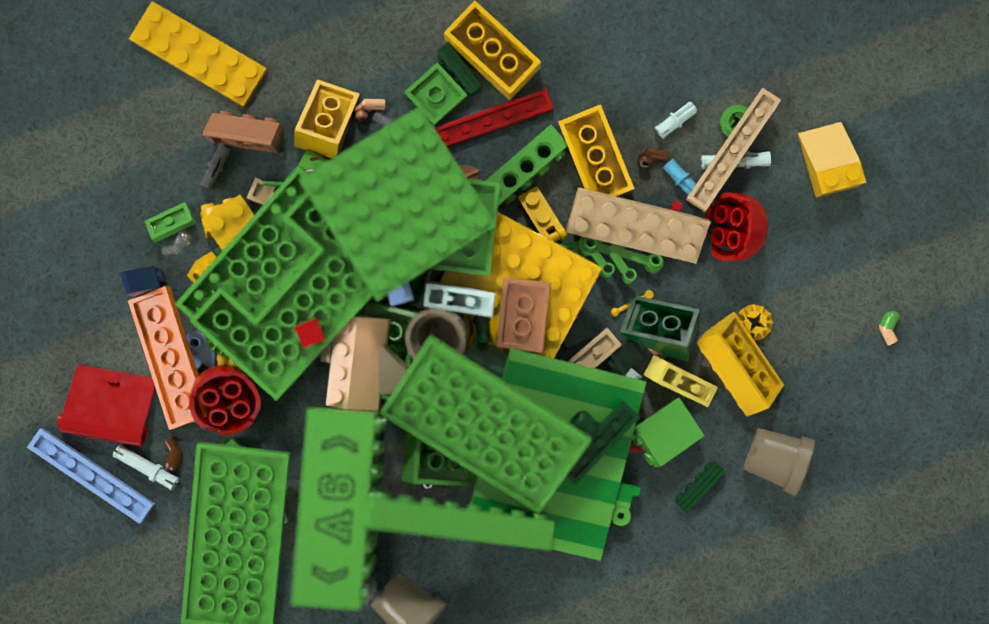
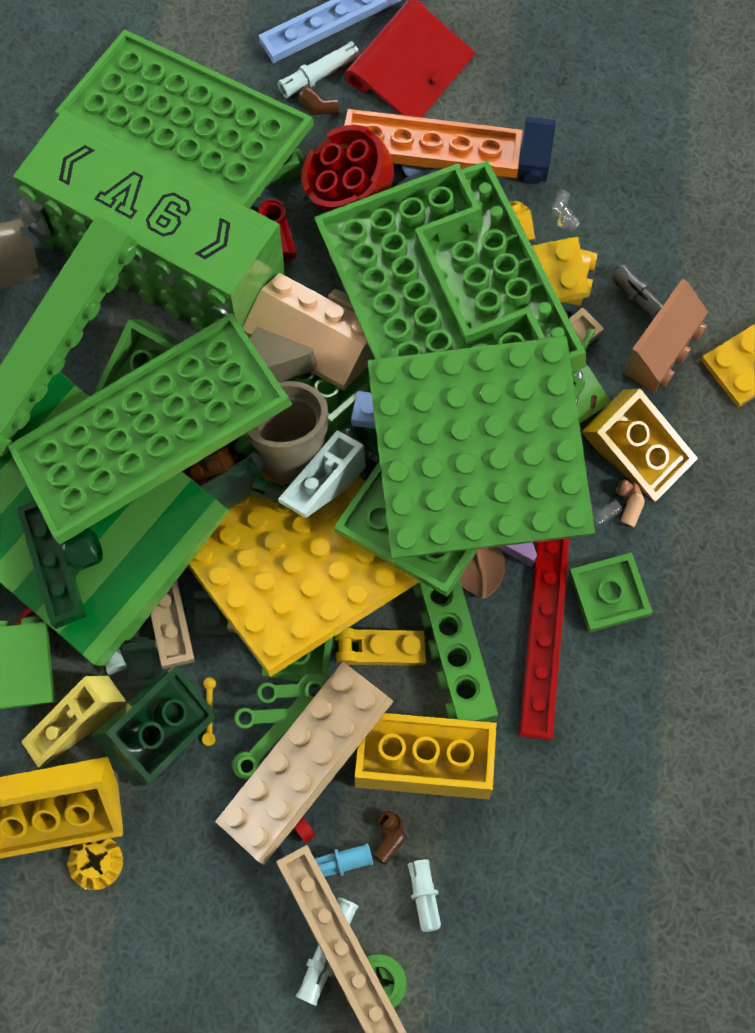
camera: 115 degrees right, 15 degrees down
(170, 222) = (594, 213): bright green plate -> none
(290, 427) = (275, 207): none -> red piece
(310, 332) = (372, 280): red tile -> none
(459, 69) = (630, 638): dark green piece -> none
(492, 50) = (635, 688): yellow brick -> none
(523, 314) = (262, 548): nougat plate -> none
(747, 226) = (226, 910): red cylinder -> none

